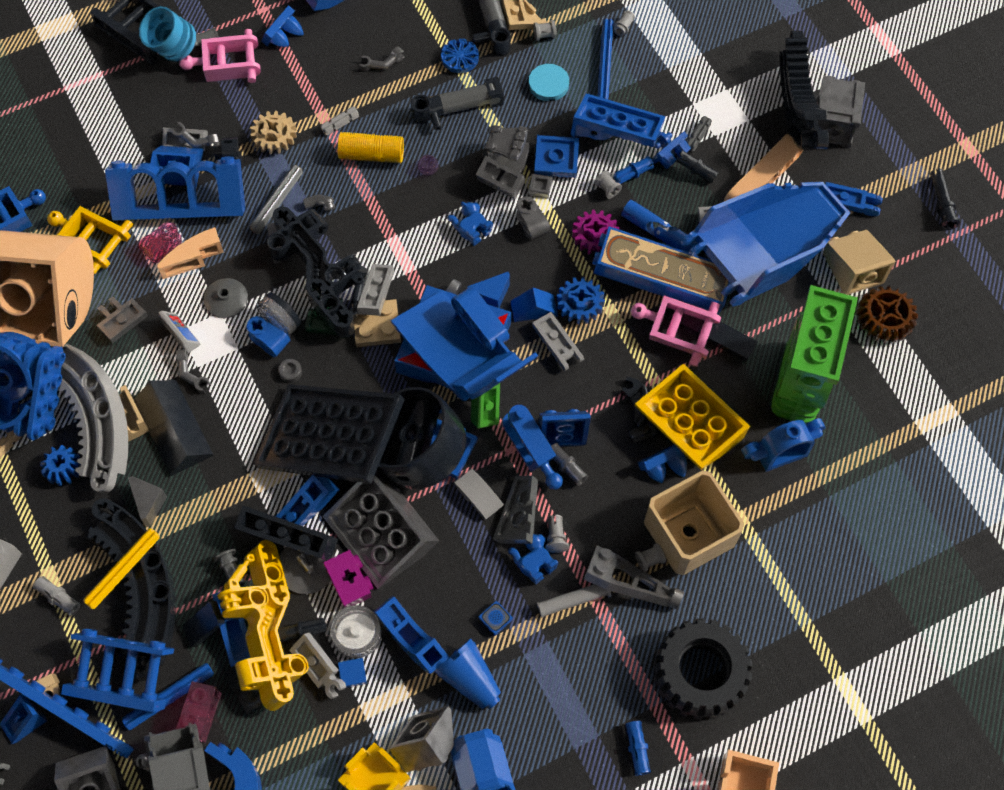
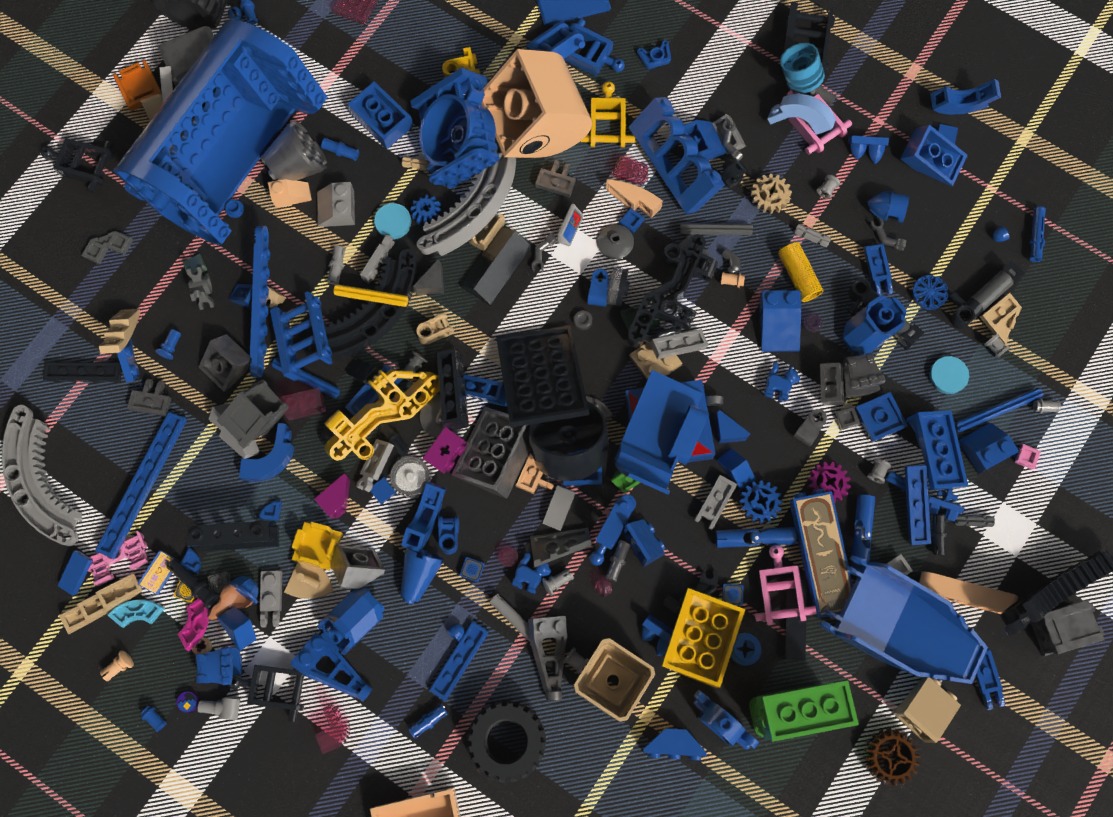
camera: 65 degrees right, 10 degrees up
(47, 508) = (392, 220): none -> medium azure tile
(55, 160) = (655, 57): none -> blue piece
(81, 542) = (371, 269): none -> light grey plate
(204, 519) = (435, 328): none -> tan piece
(208, 54) = (804, 107): none -> light blue arch
(214, 270) = (631, 220): none -> blue tile
(301, 84) = (828, 186): none -> light grey bush
(331, 730) = (335, 497): none -> magenta slope
(342, 206) = (733, 279): none -> light nougat pin
(355, 39) = (889, 204): none -> blue helmet
(407, 190) = (780, 321): none -> blue slope
(409, 82) = (878, 268): none -> blue hinge
(427, 503) = (531, 477): none -> light nougat hinge
(438, 620) = (448, 530): none -> blue piece
(465, 111) = (874, 325): none -> blue brick
(502, 572) = (508, 556): none -> clear pink plate
(555, 668) = (456, 631): none -> blue hinge
(587, 491) = (603, 586): none -> clear pink plate
(588, 682) = (459, 661): none -> blue tile
(619, 311) = (769, 536): none -> blue piece
(637, 85) = (987, 447): none -> blue slope
(657, 373) = (732, 594): none -> tile
(659, 167) = (917, 504): none -> blue plate
(661, 62) = (1027, 456): none -> bright pink tile
(730, 387) = (752, 643): none -> blue gear
(783, 503) = (674, 743): none -> blue slope
(945, 207) = (1029, 765): black pin -> none

